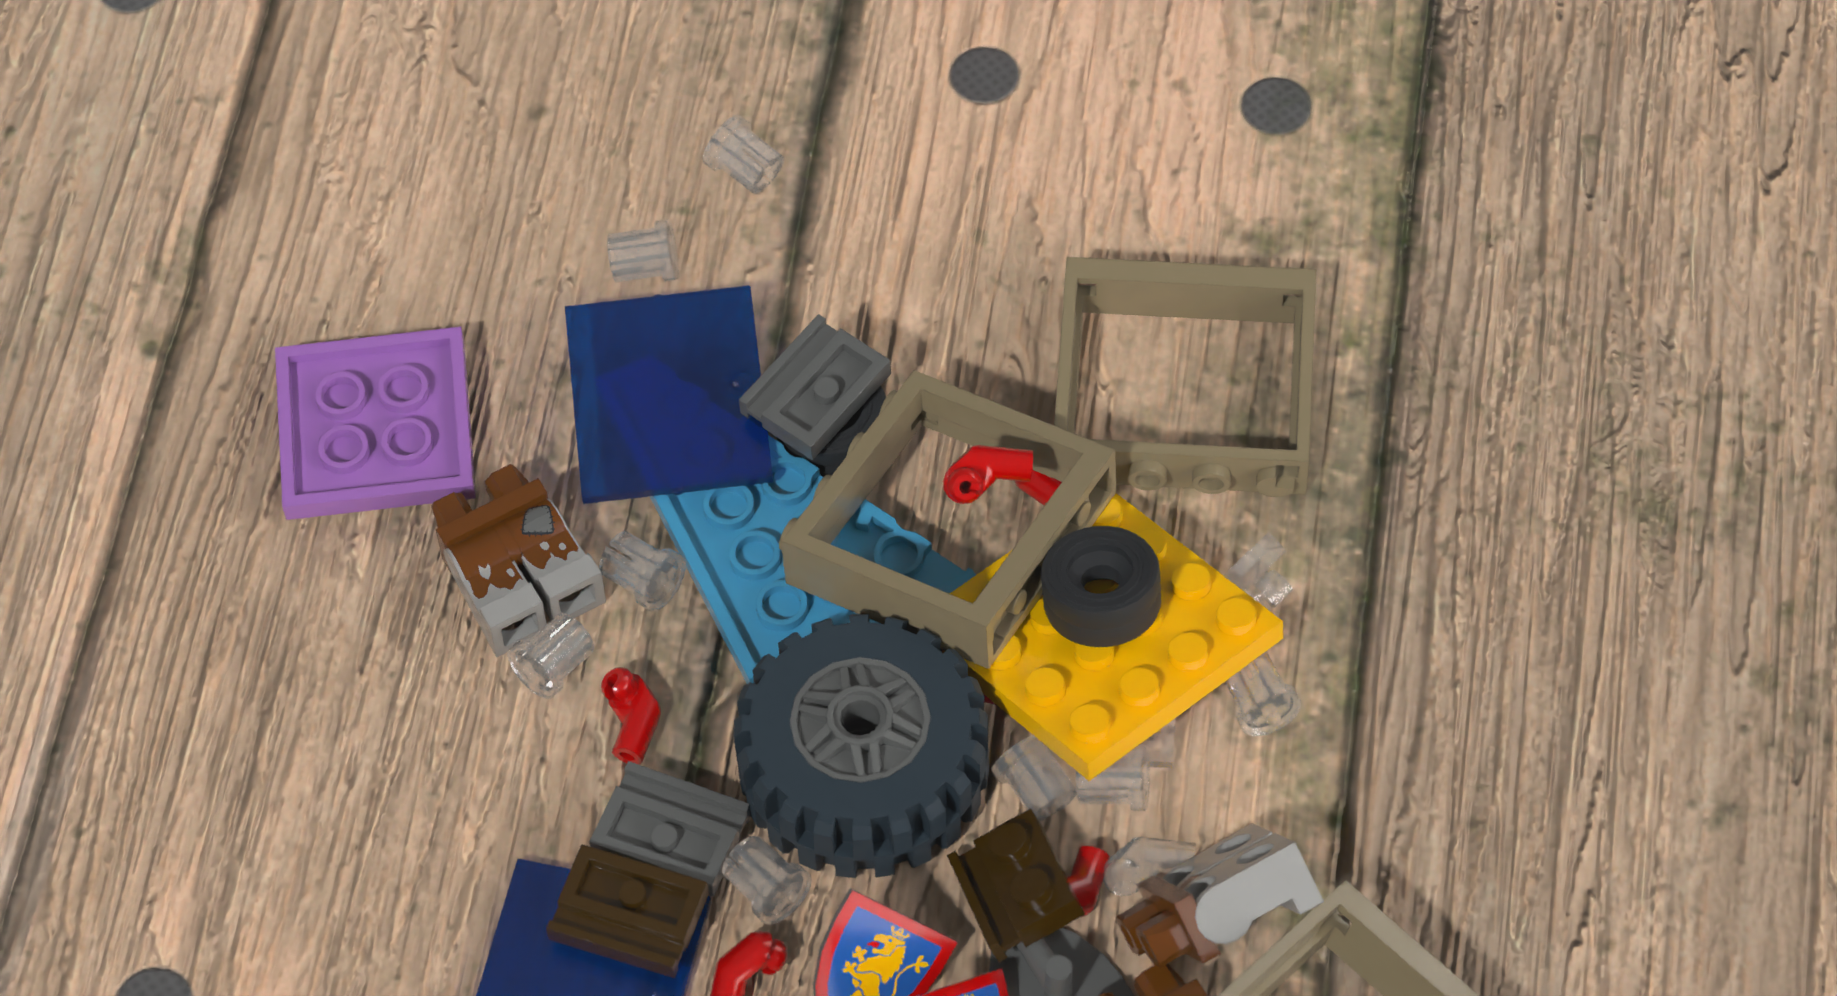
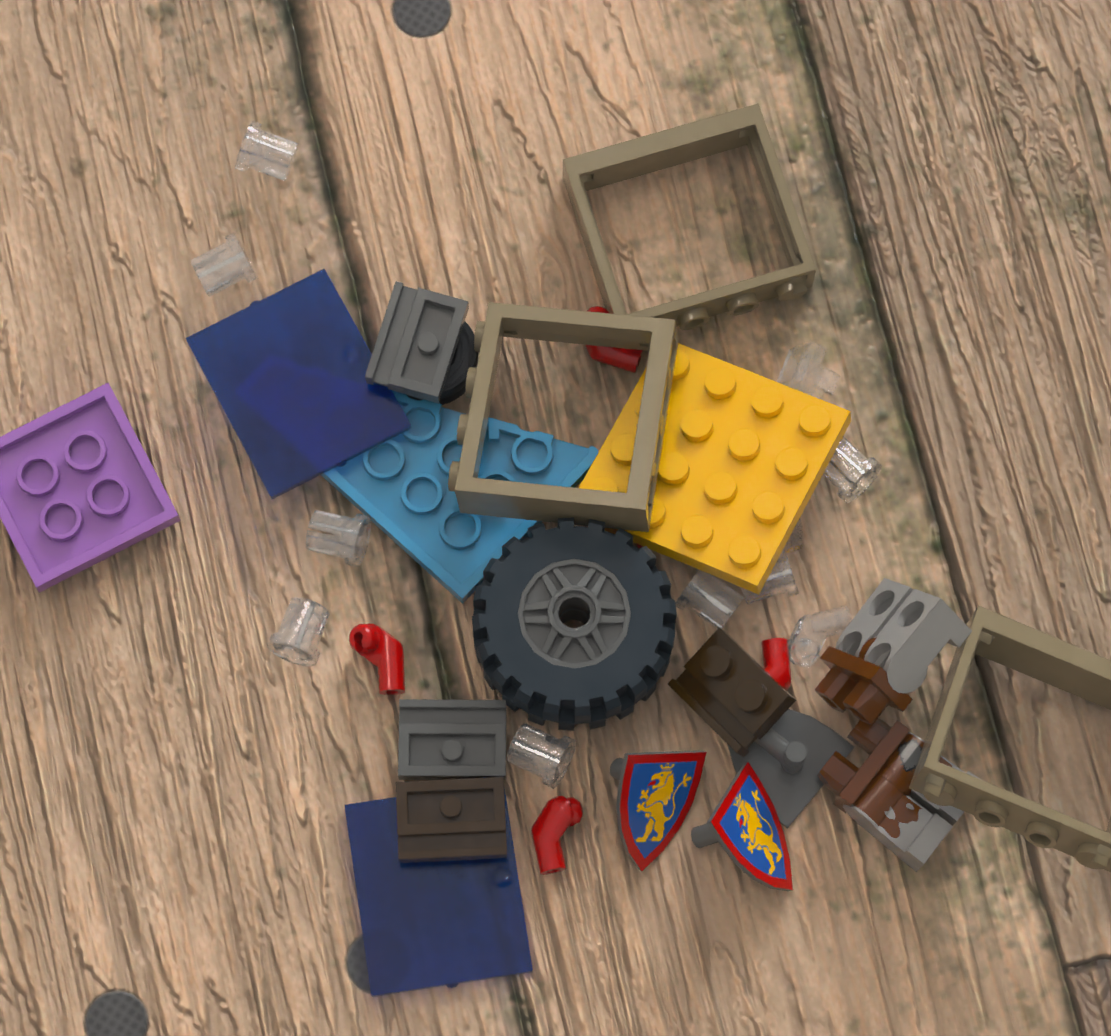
camera: 25 degrees left, 15 degrees up
(512, 536) = (228, 546): hips -> none
(982, 467) = (583, 374): red arm -> none
(1101, 617) = (708, 464): black tyre -> none

